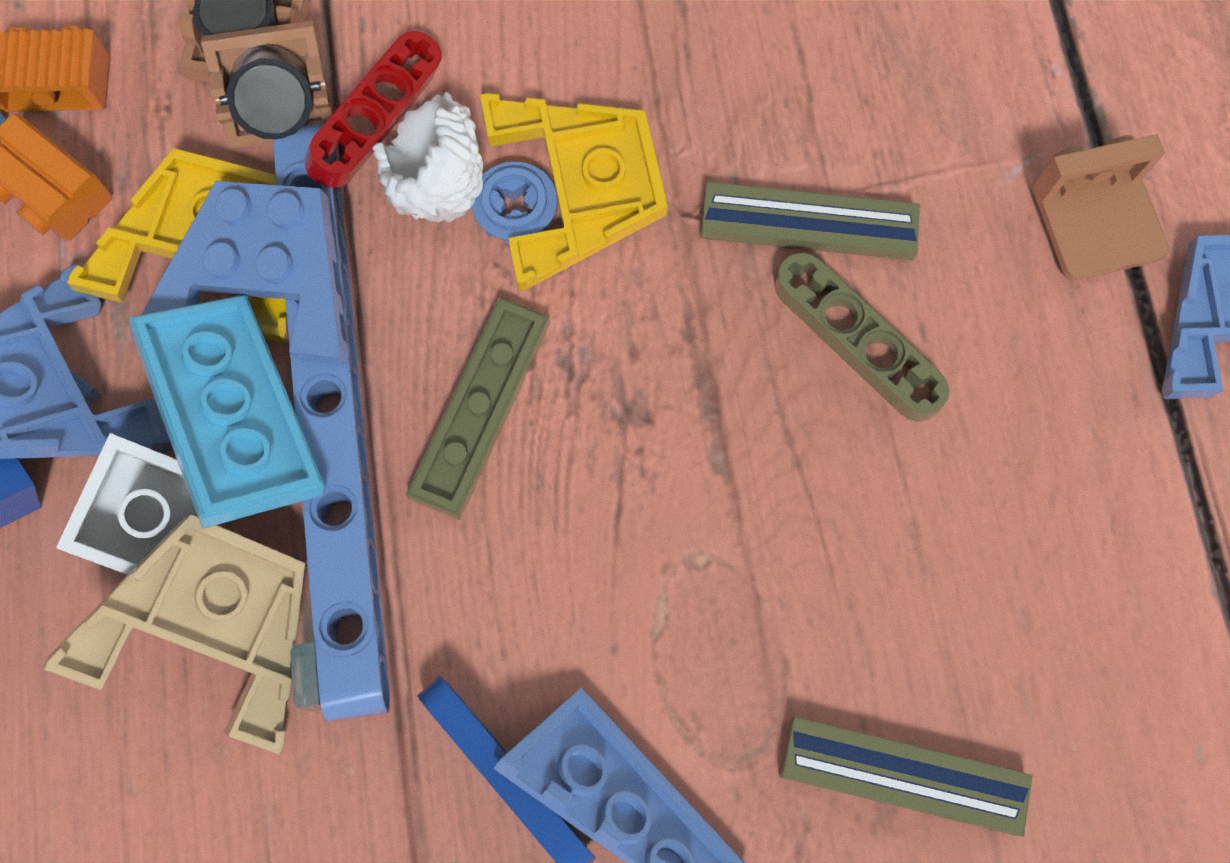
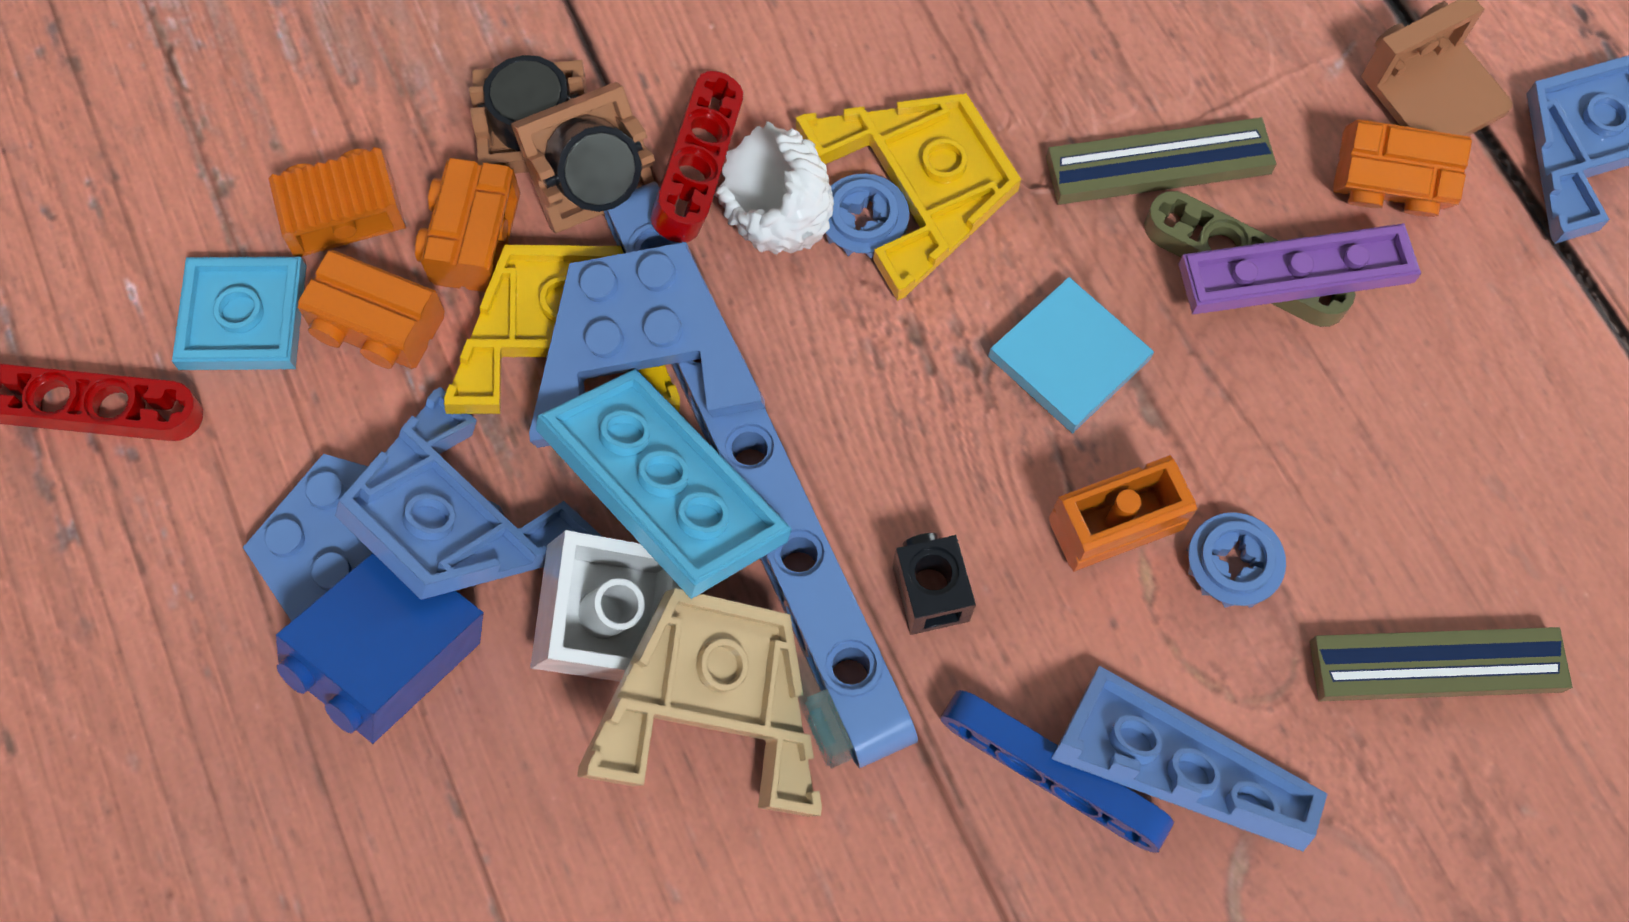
camera: 15 degrees left, 5 degrees down
(156, 113) = (468, 223): none -> orange brick
(456, 592) = (928, 608): none -> black brick
(478, 408) = (898, 425): olive tile -> none
(647, 550) = (1122, 513): none -> orange brick
(660, 384) = (1070, 354): none -> medium azure tile
(773, 617) = (1258, 547): none -> medium blue gear
(901, 360) = (1298, 268): none -> medium lavender tile
(1036, 286) = (1402, 167): none -> orange brick

